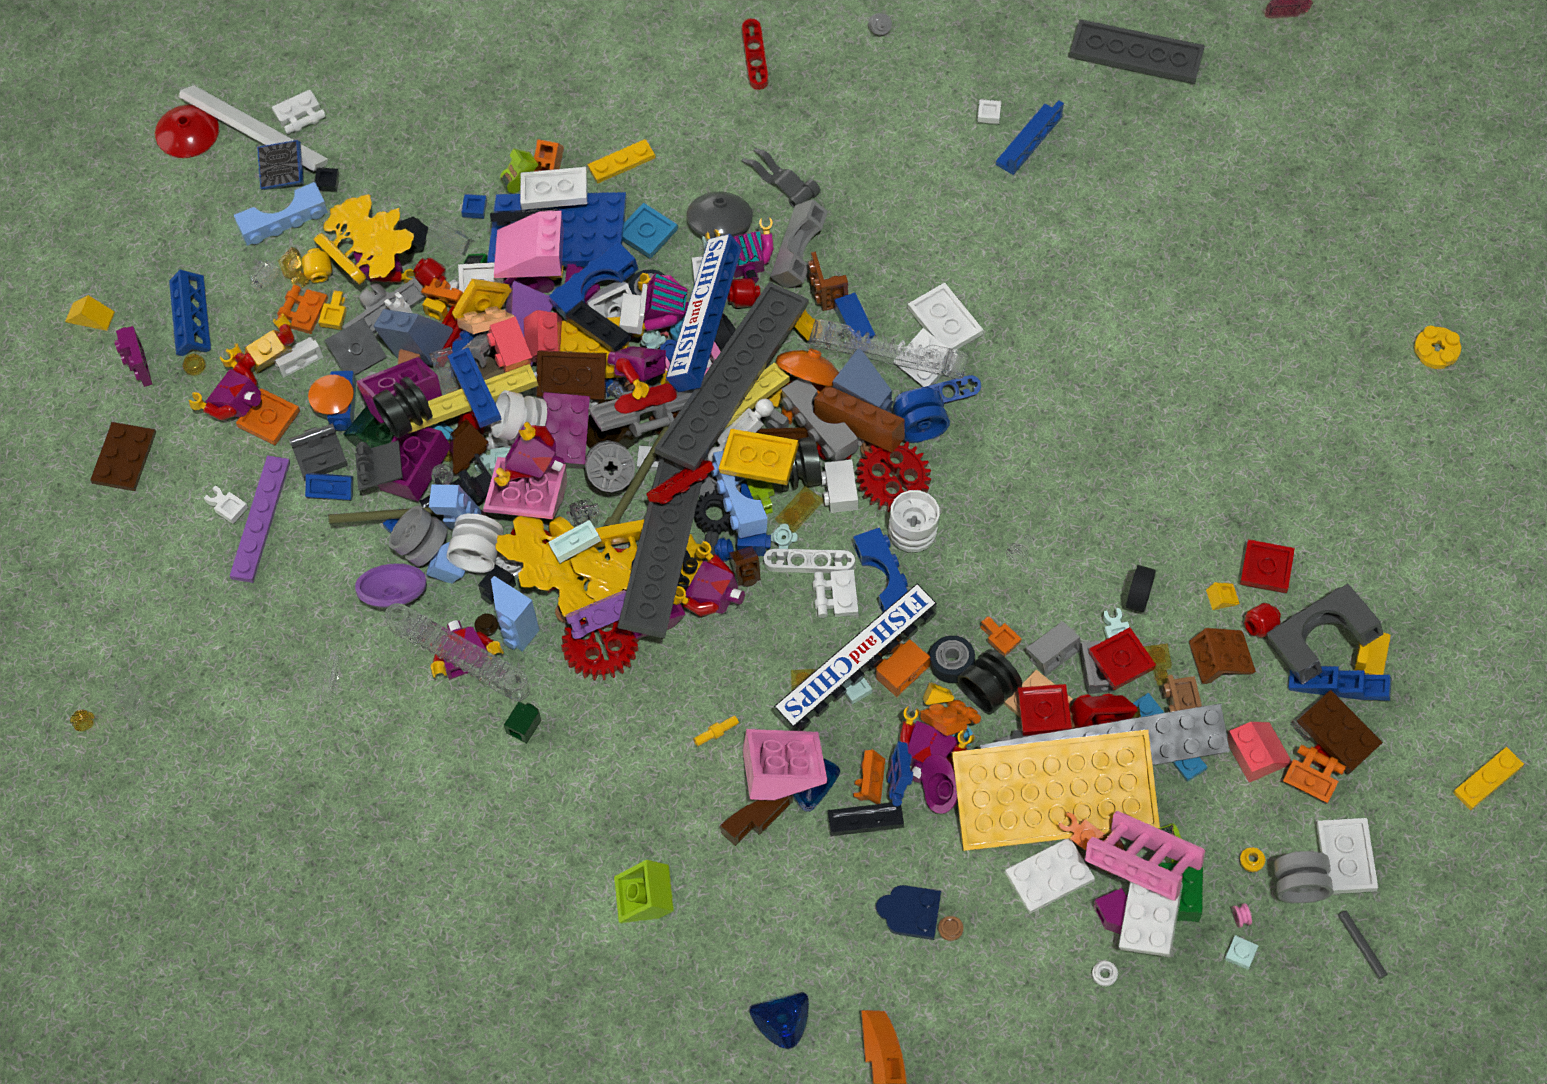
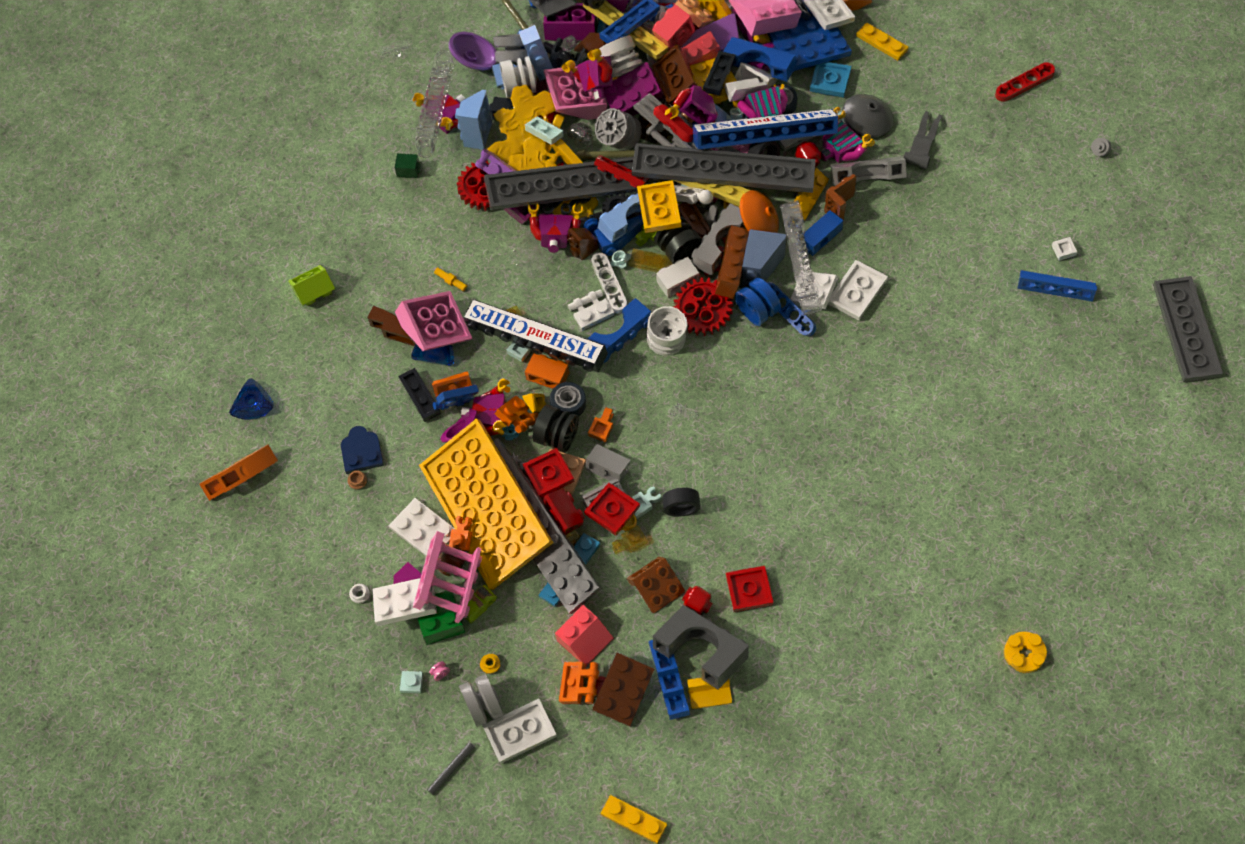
camera: 70 degrees right, 0 degrees up
(1181, 693) = (605, 565): medium nougat bracket -> none
(1222, 595) = (710, 567): yellow slope -> none

